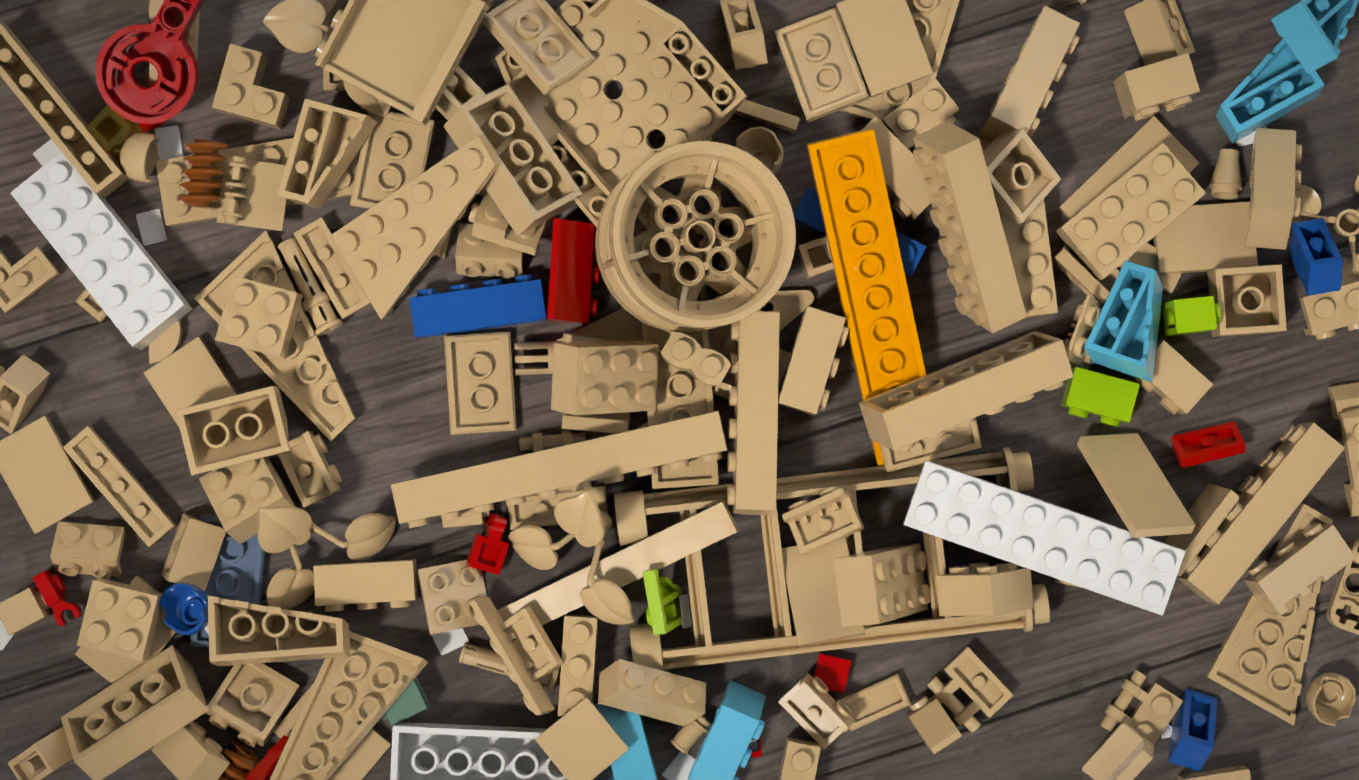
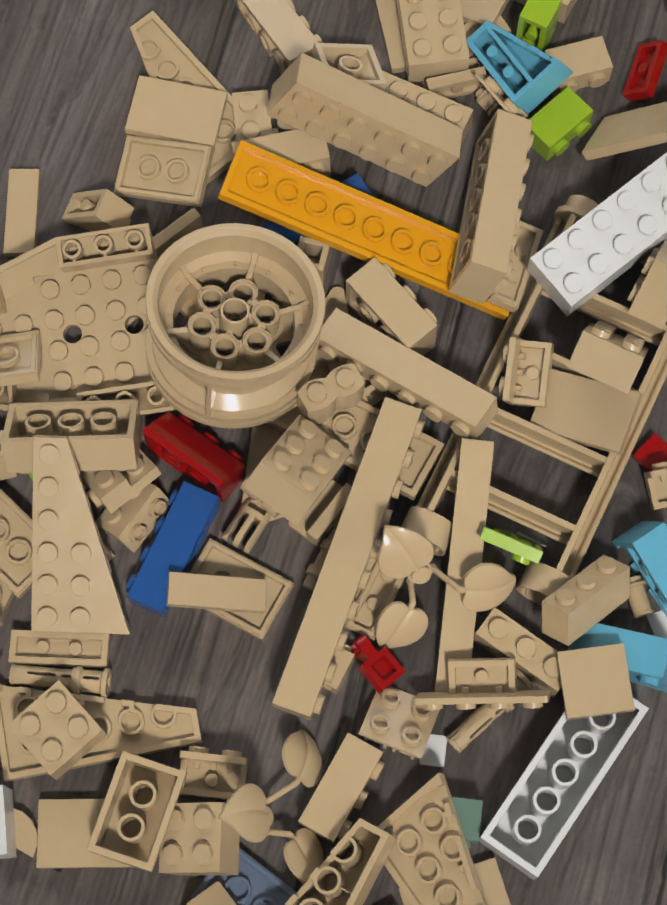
camera: 55 degrees left, 15 degrees down
(460, 372) = (216, 592): none -> tan tile

